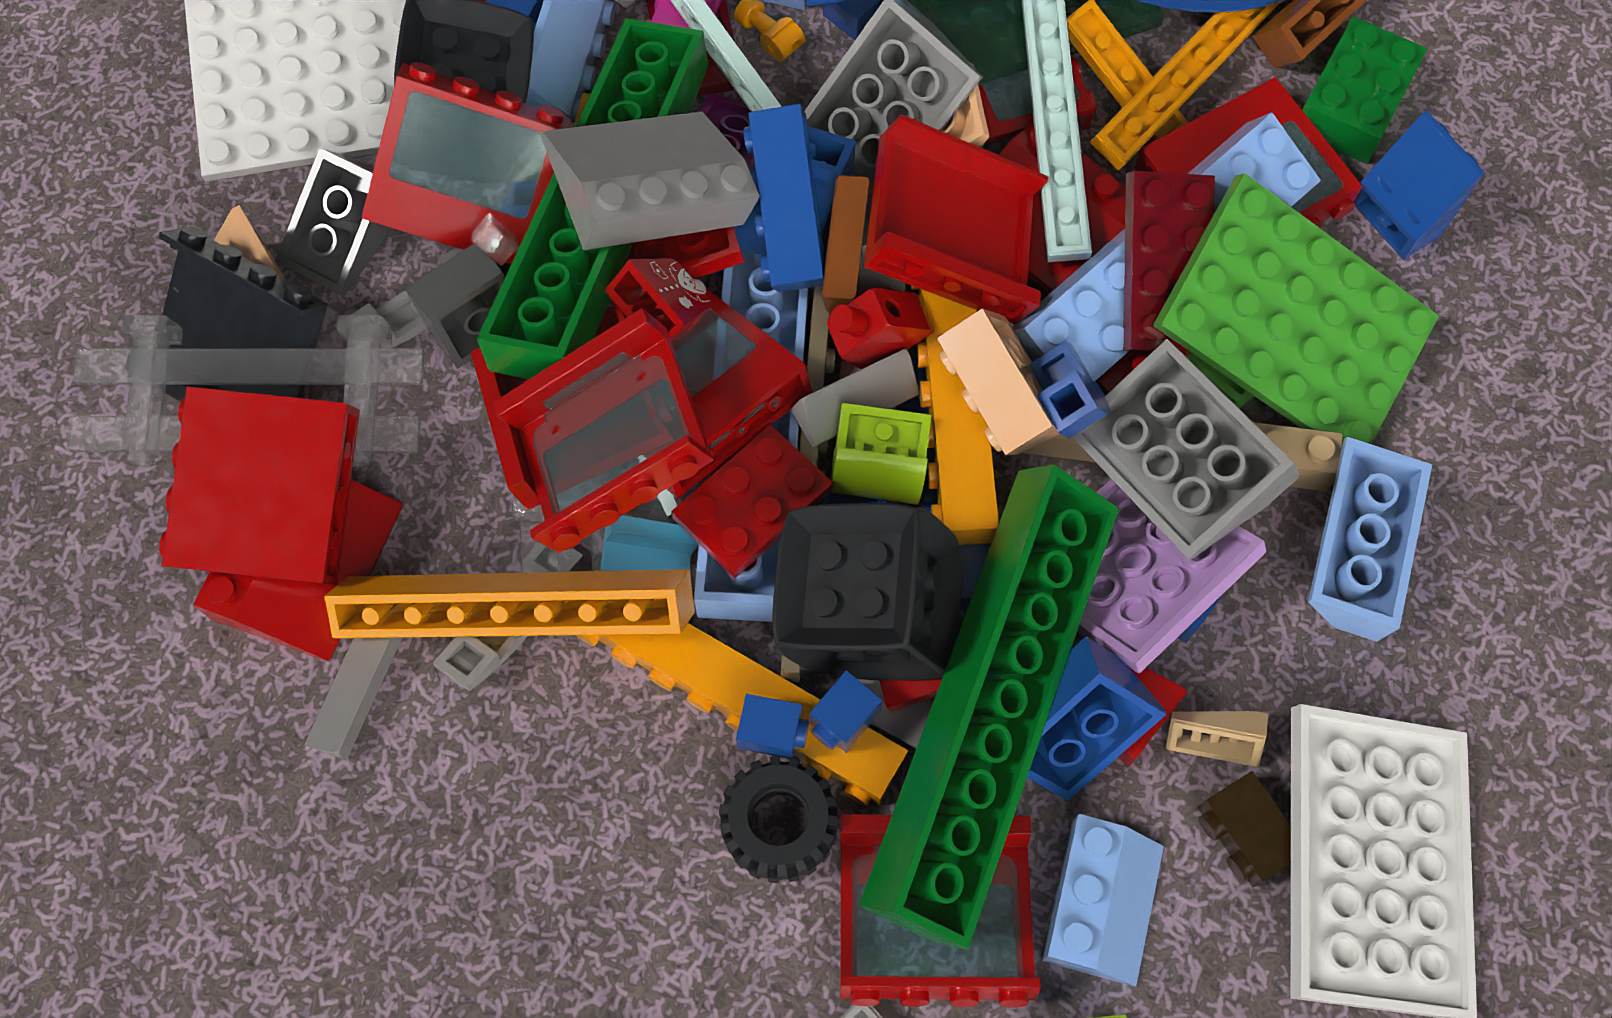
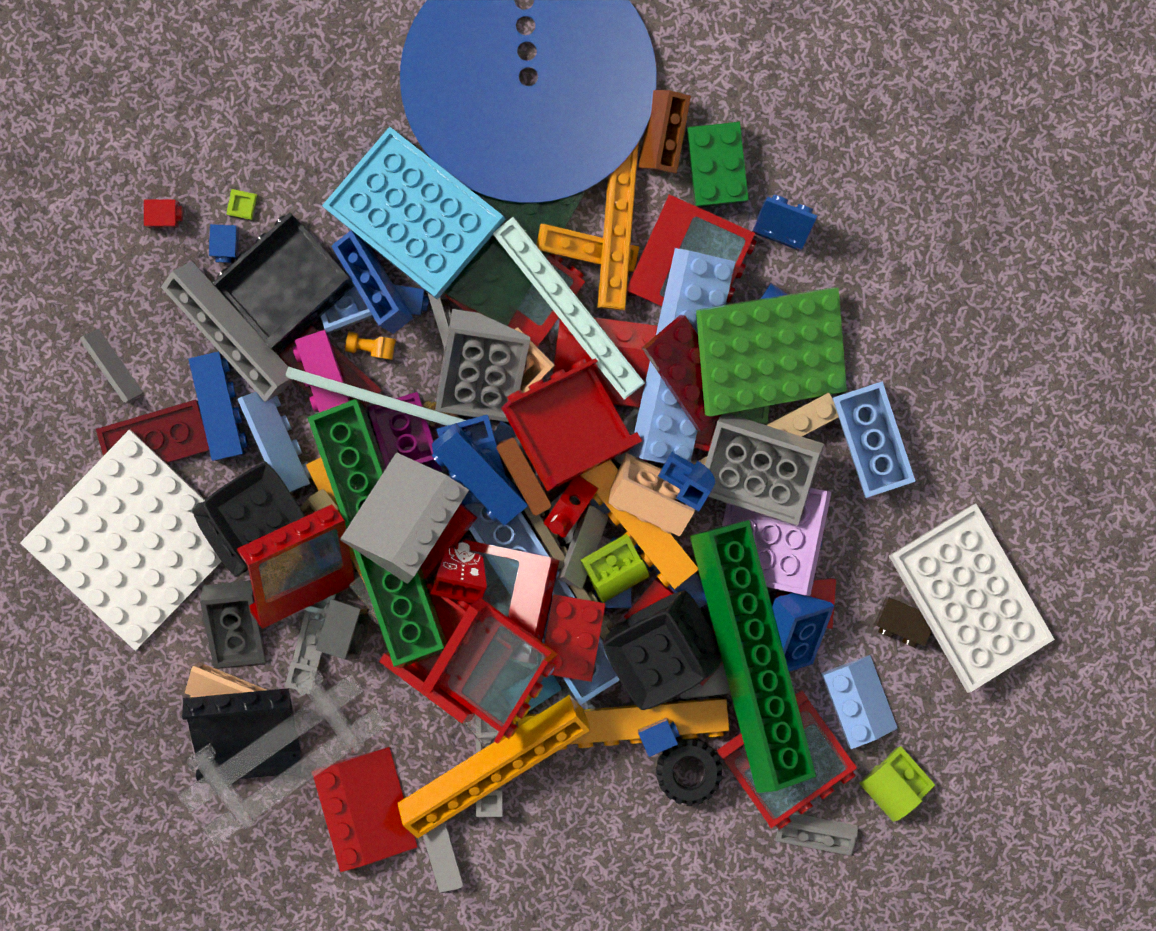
camera: 35 degrees left, 20 degrees up
(260, 485) = (330, 799): red panel -> none
(495, 239) = (338, 590): clear piece -> none
(844, 713) = (688, 708): blue brick -> none
(1233, 737) = (864, 586): tan slope -> none

